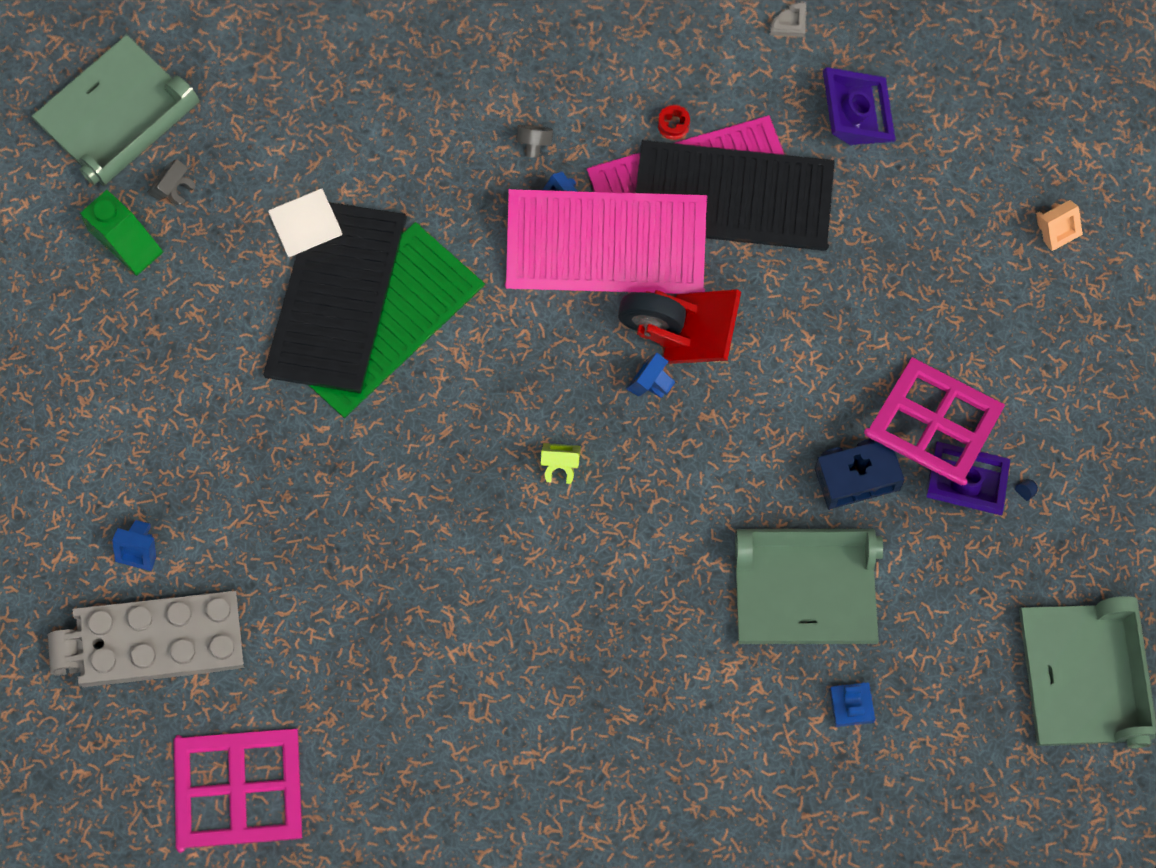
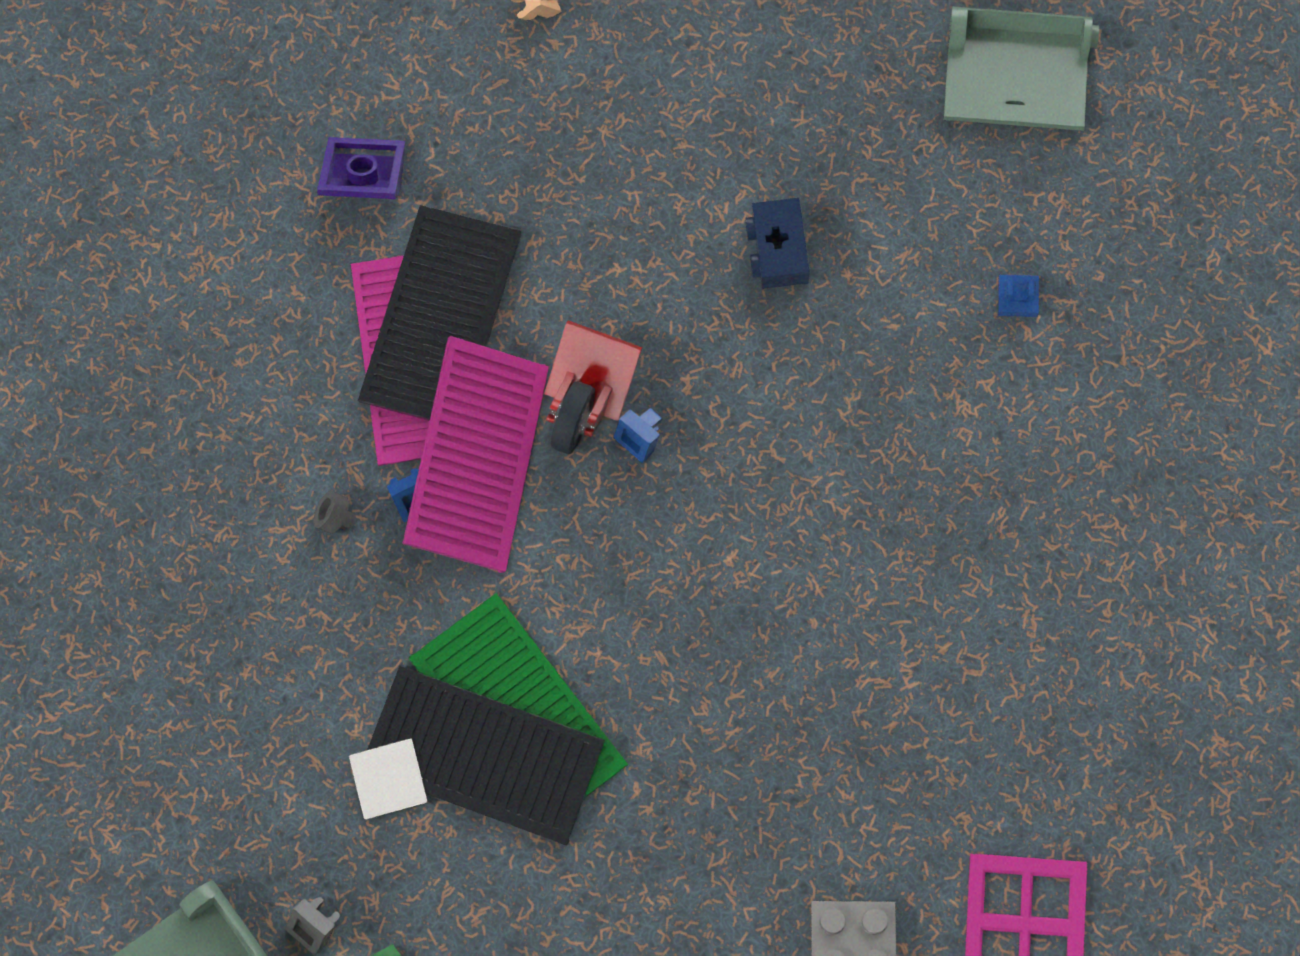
camera: 75 degrees left, 5 degrees up
(560, 456) = (714, 539): tile -> none
(667, 114) = (338, 350): red bush -> none
(790, 21) = (241, 221): light grey tile -> none
(807, 578) = (883, 315): sand green door -> none
(935, 421) = (710, 190): dark pink window -> none
(984, 487) = (806, 141): dark purple slope -> none
(1027, 489) = (816, 88): dark blue piece -> none

